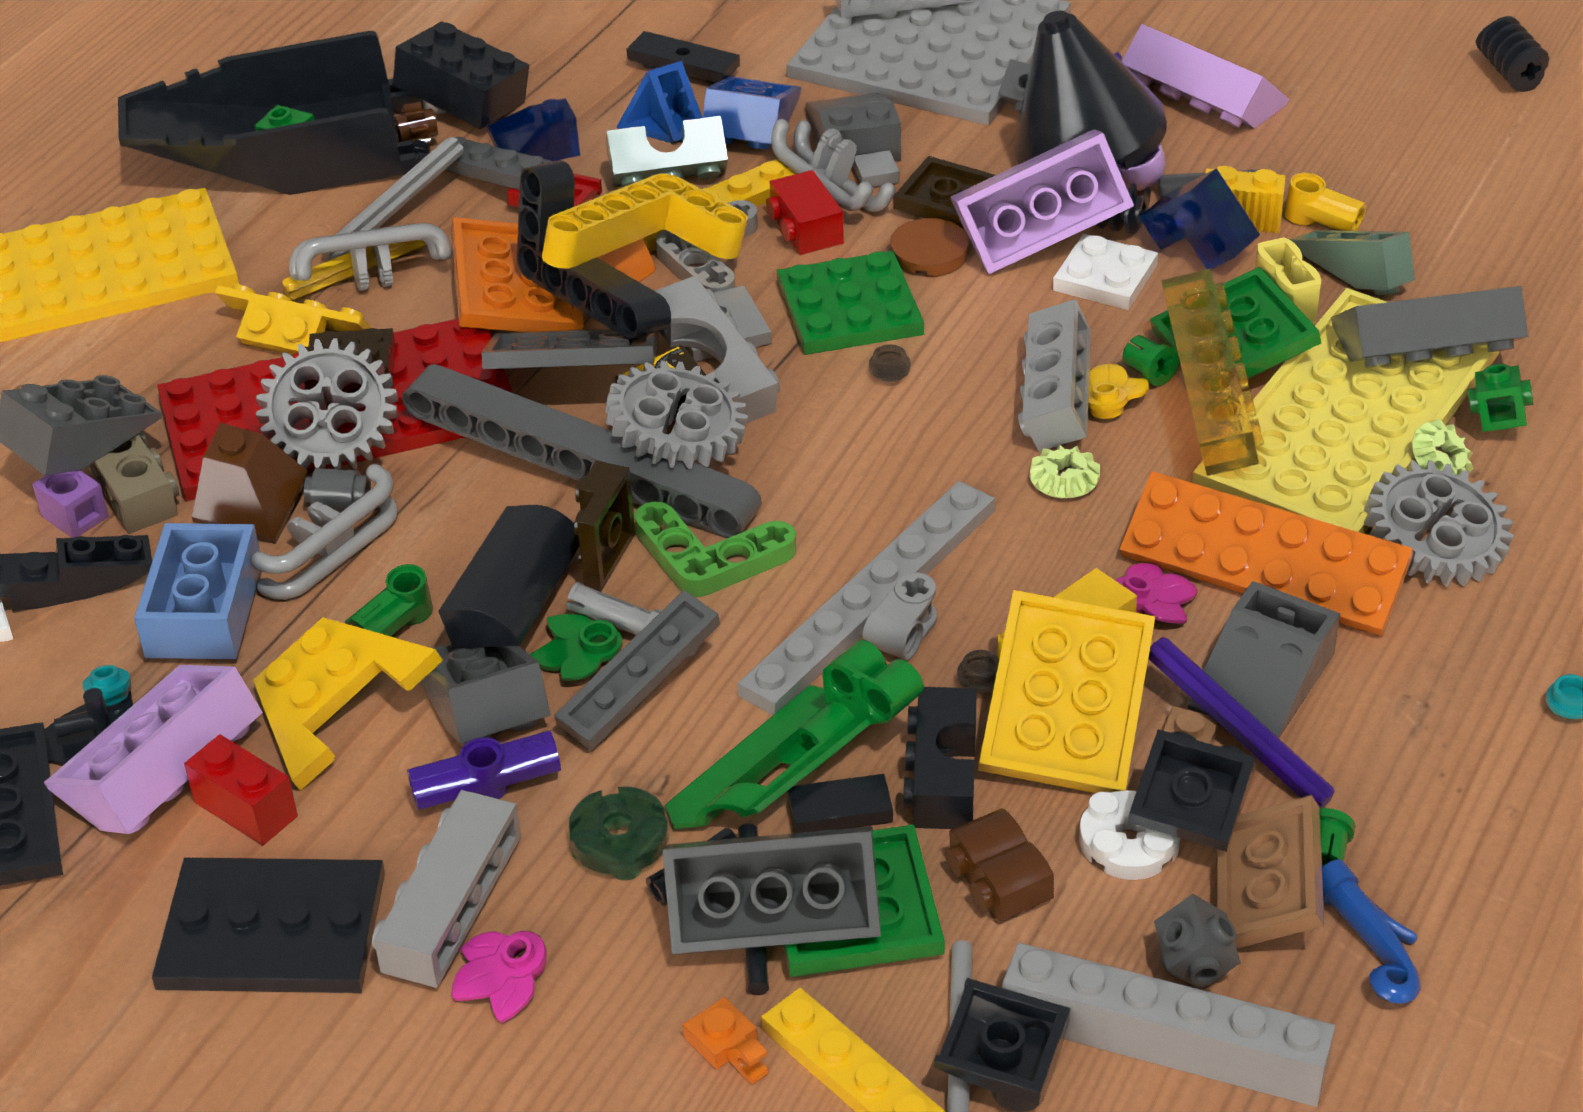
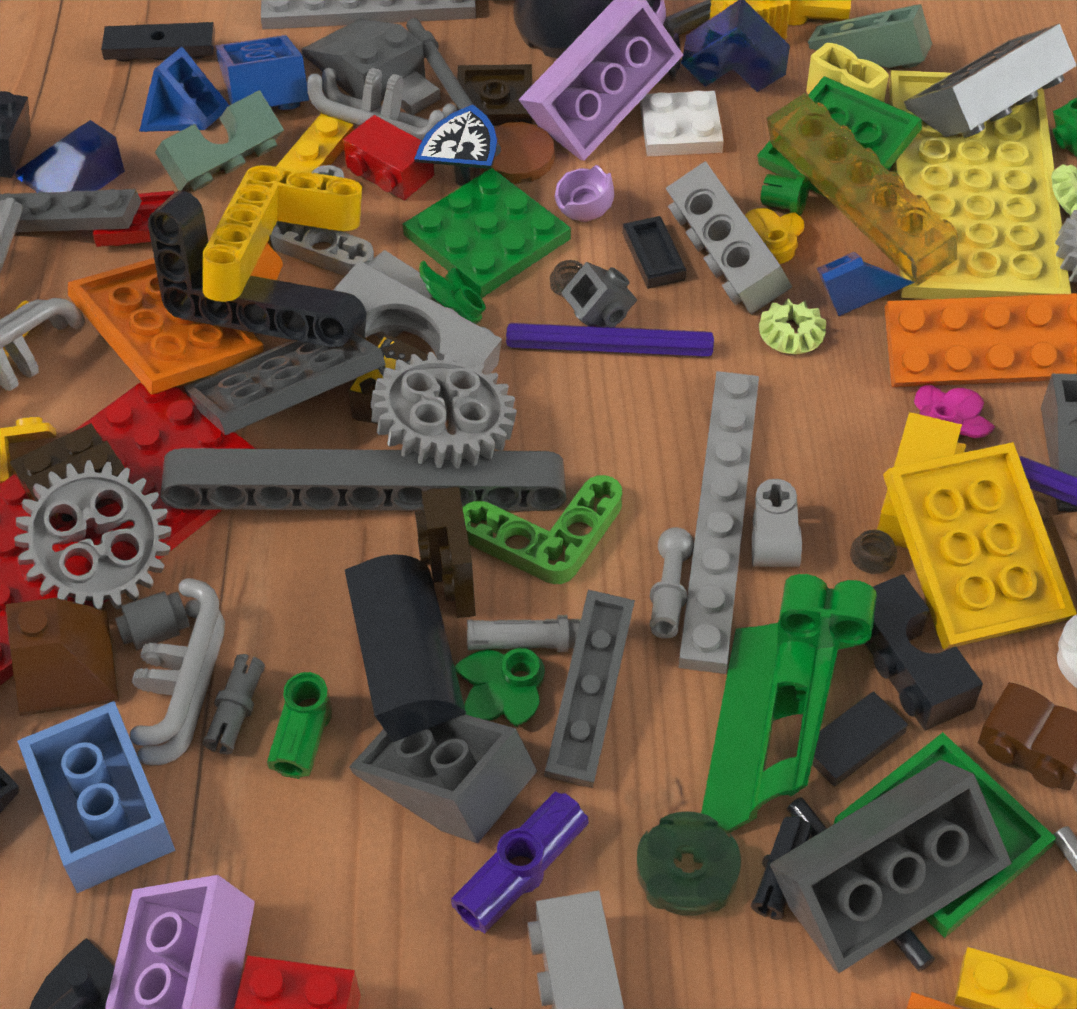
camera: 30 degrees left, 10 degrees up
(111, 681) = (62, 945): teal plate -> none
(321, 676) = (286, 835): yellow wing -> none
(354, 575) = (234, 704): none -> dark grey pin
(769, 633) = (668, 595): none -> light grey pin
(775, 341) = (453, 292): none -> green plate
(868, 216) = (462, 141): none -> shield
(888, 424) = (610, 339): none -> dark purple axle
(896, 381) = (599, 296): none -> dark grey brick
(911, 132) = (440, 67): none -> dark grey bar
(957, 298) = (585, 193): none -> lavender hair
(988, 369) = (654, 252): none -> black tile
(1146, 447) = (856, 283): none -> blue slope

